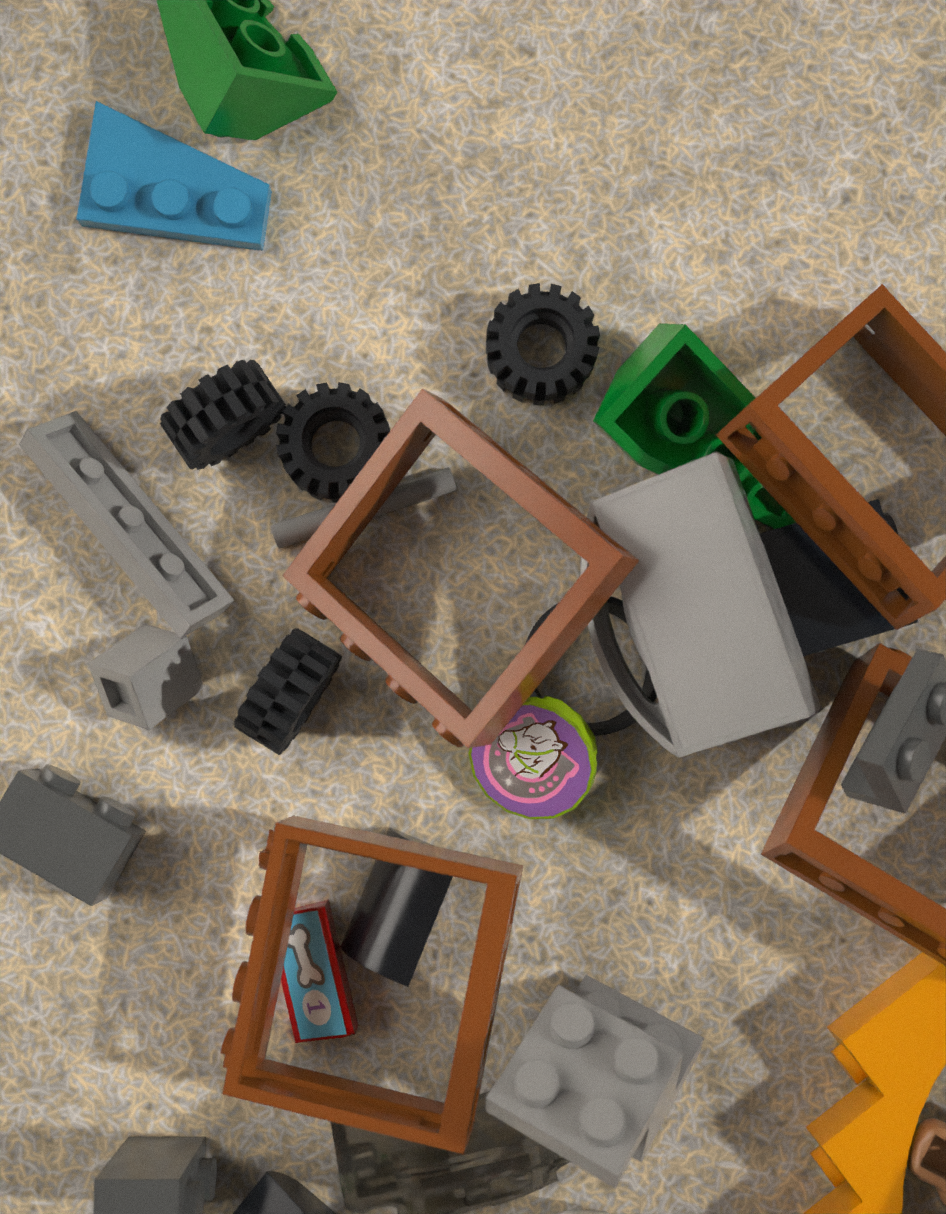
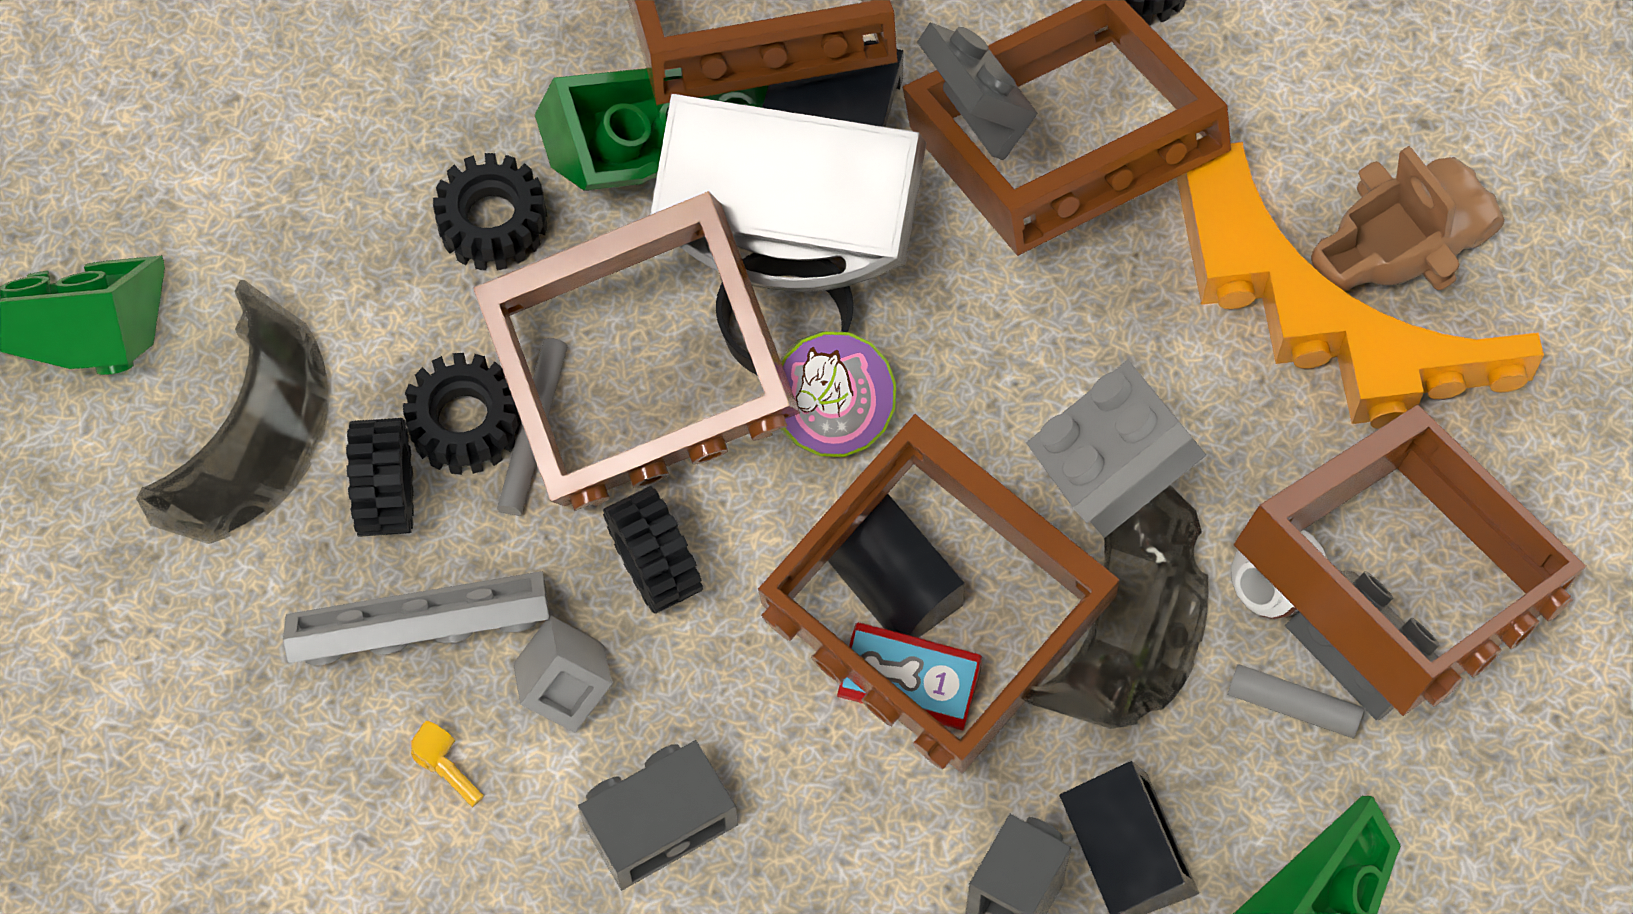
camera: 55 degrees left, 20 degrees down
(19, 607) = (429, 751): none -> yellow hand
(166, 189) = (141, 435): dark azure wing -> none
(228, 288) = (264, 440): none -> clear smoke windscreen

